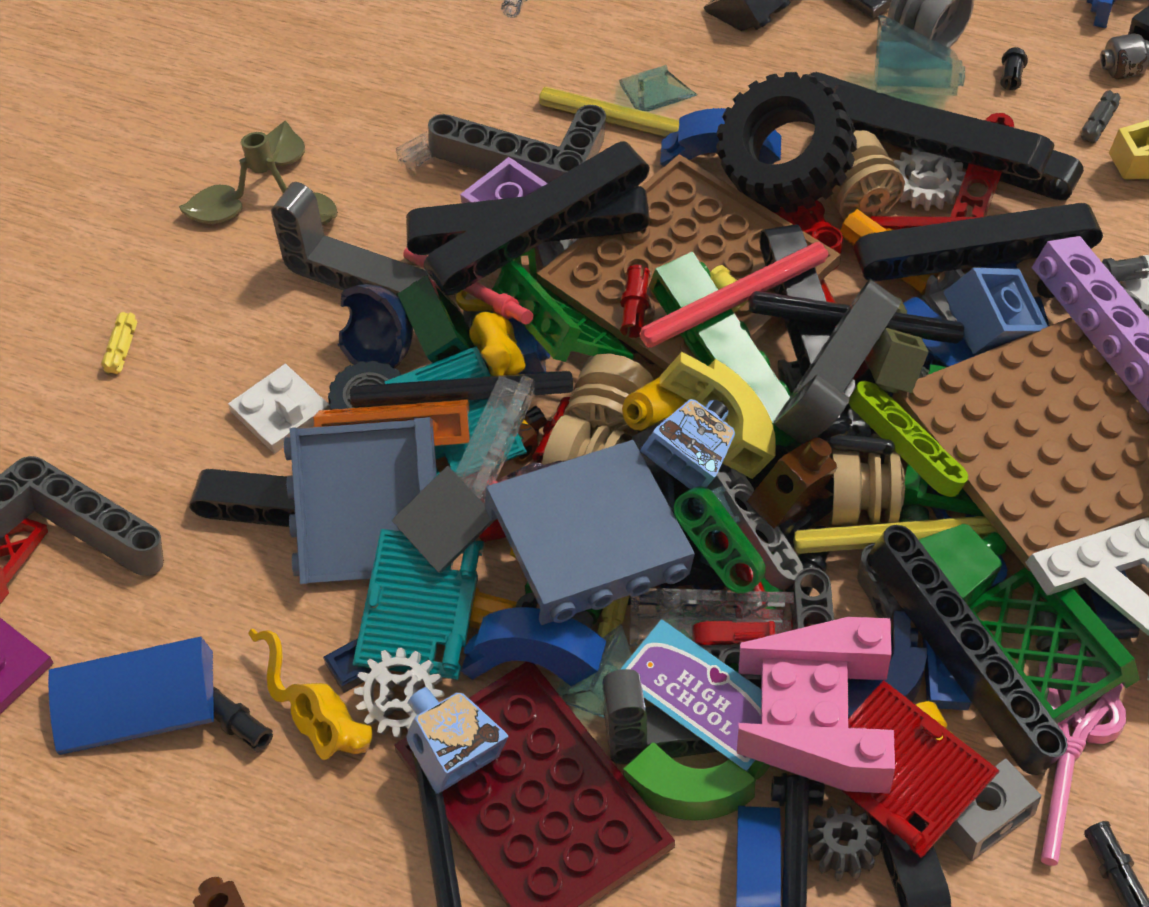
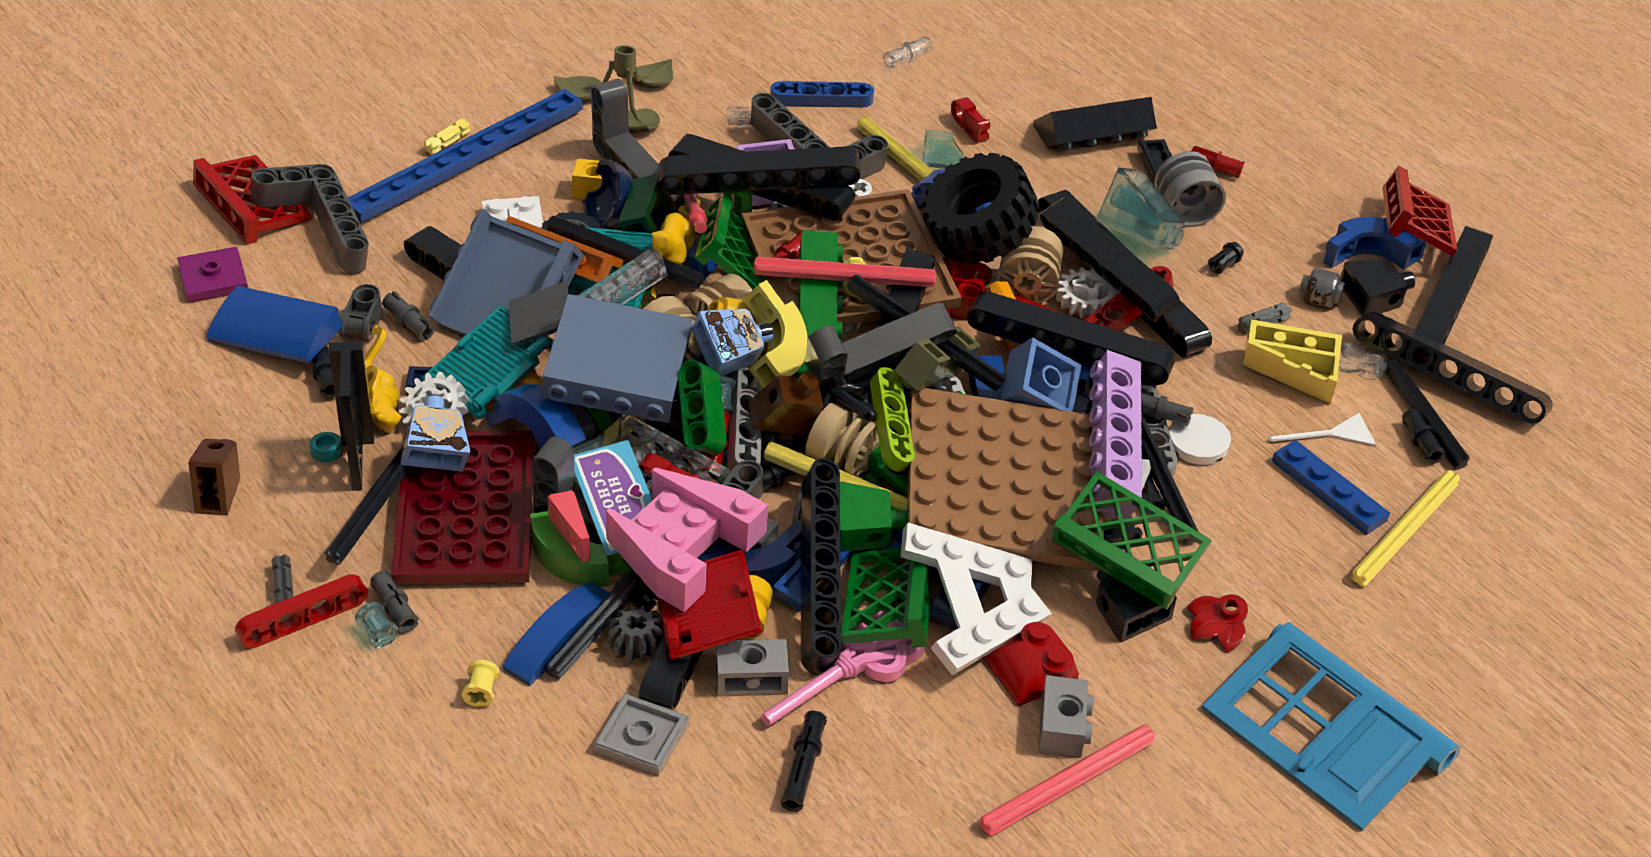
camera: 25 degrees right, 10 degrees down
(158, 358) = (464, 154): none -> blue plate
(219, 624) = (362, 312): none -> dark grey piece
(269, 593) = (408, 316): none -> dark grey pin
(314, 813) = (326, 447): none -> teal tile
(324, 312) = (584, 178): none -> yellow brick
(340, 762) = (352, 403): none -> black fence
(441, 99) = (851, 93): none -> blue beam
(649, 39) = (970, 120): none -> red piece
(685, 756) = (568, 520): none -> coral slope

